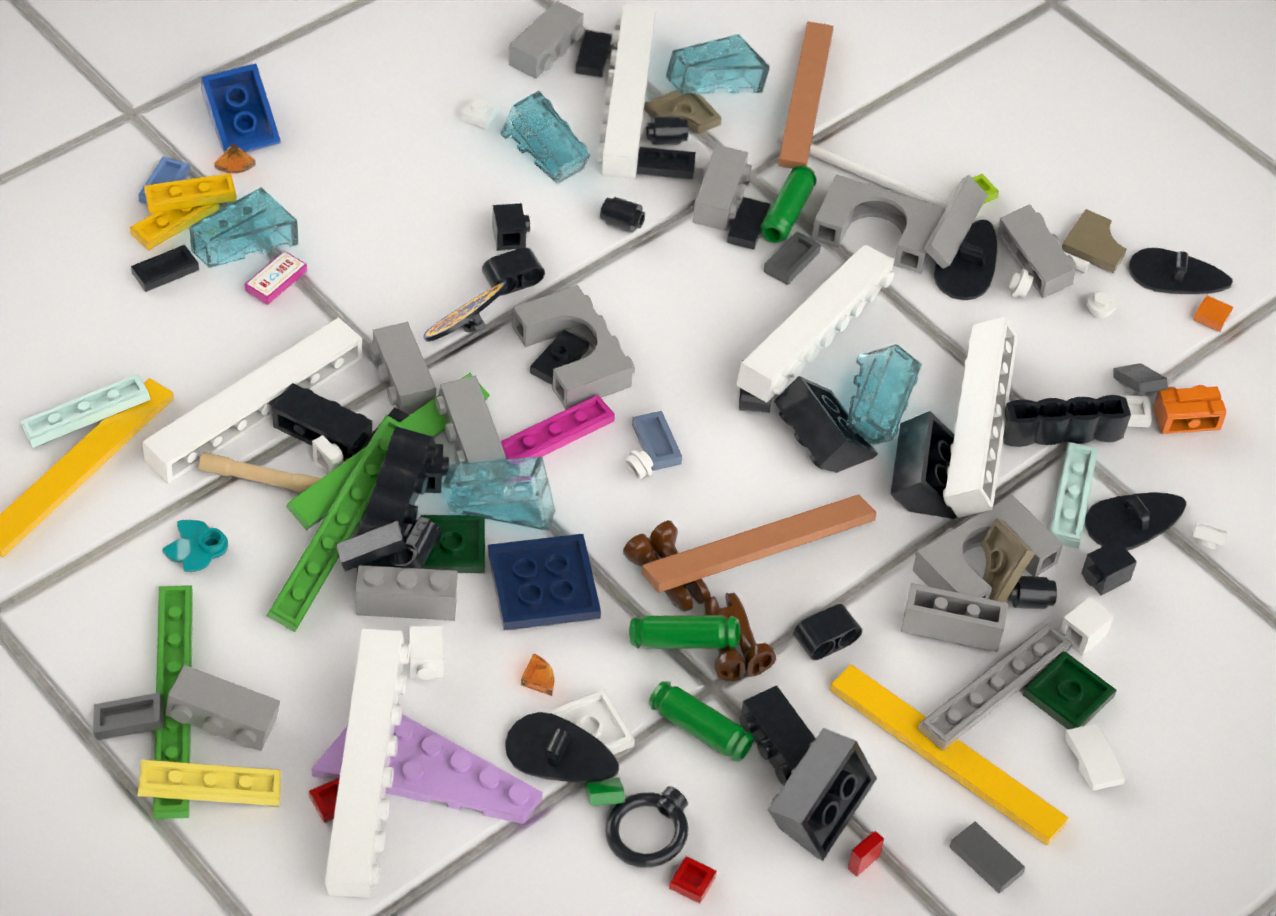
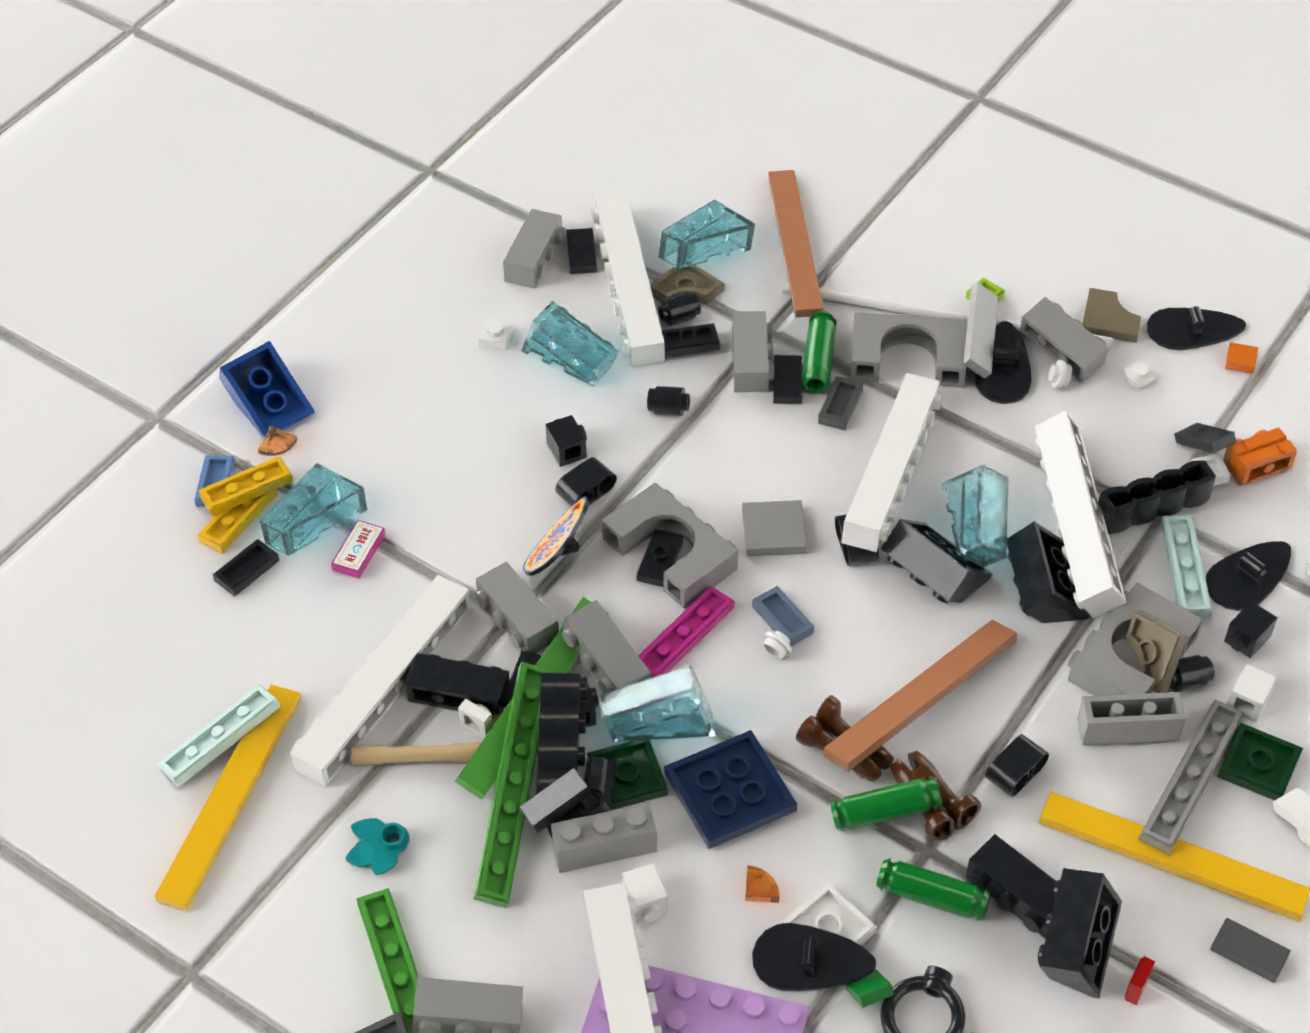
camera: 10 degrees left, 0 degrees up
(680, 357) = (774, 527): none -> light grey tile

